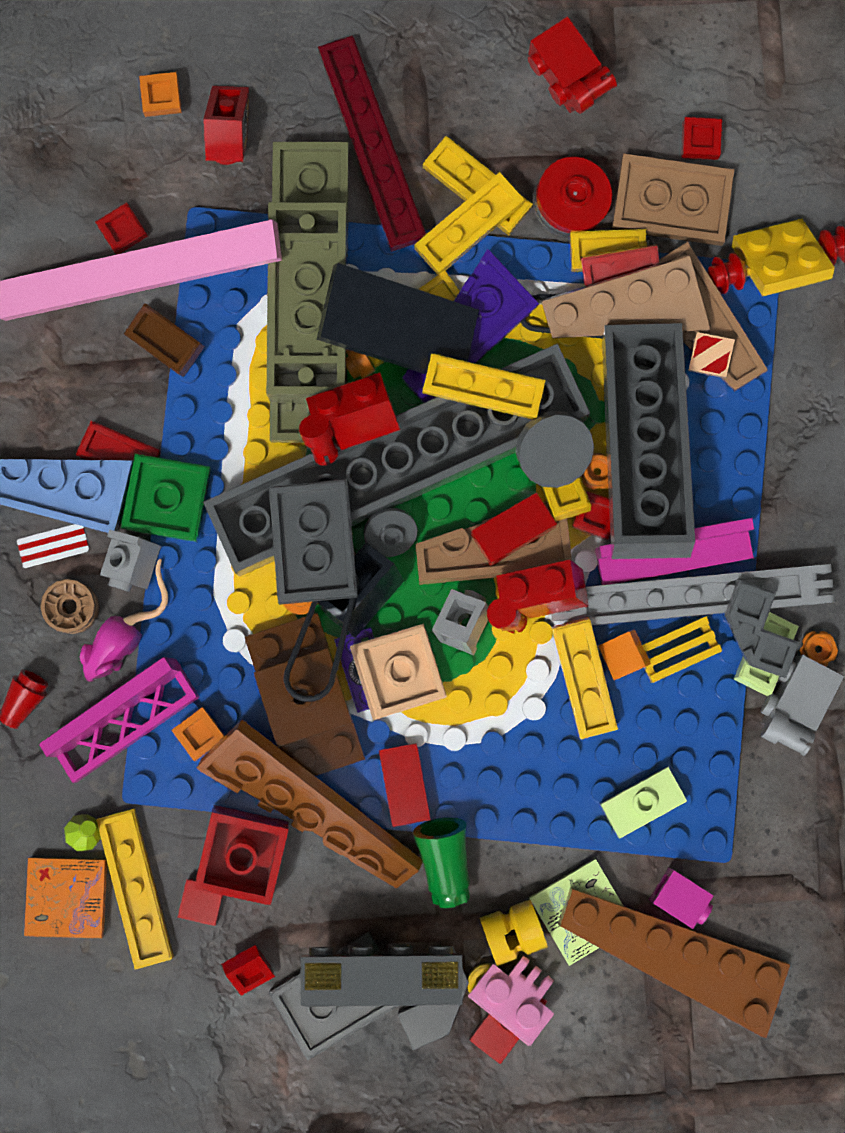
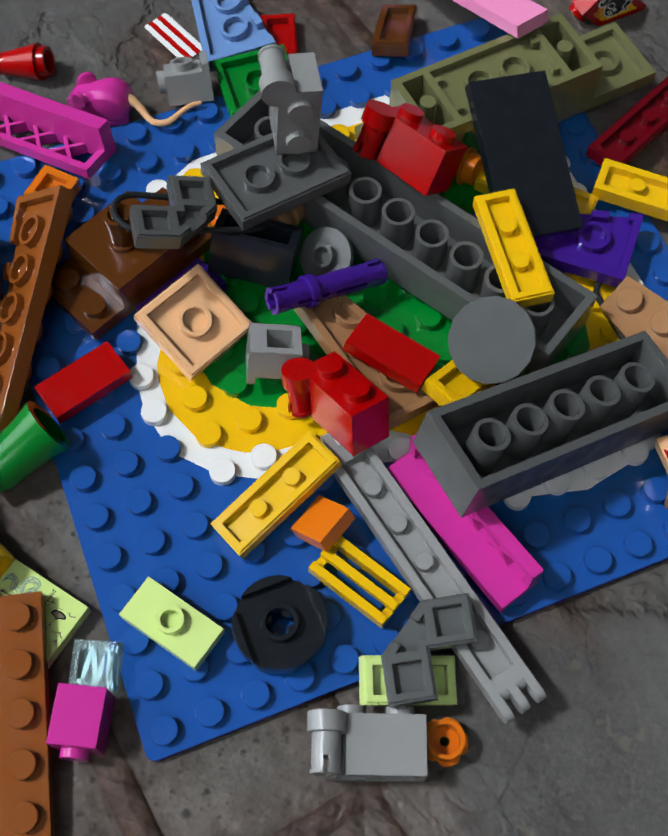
camera: 65 degrees right, 20 degrees down
(67, 591) = (127, 58): medium nougat wheel -> none
(279, 501) = (293, 97): none -> light grey hinge
(340, 657) = (172, 226): none -> dark grey tile
(429, 563) = (312, 290): none -> dark purple pin
(643, 871) = (96, 663): none -> clear light blue tile
(701, 710) = (304, 637): none -> black plate

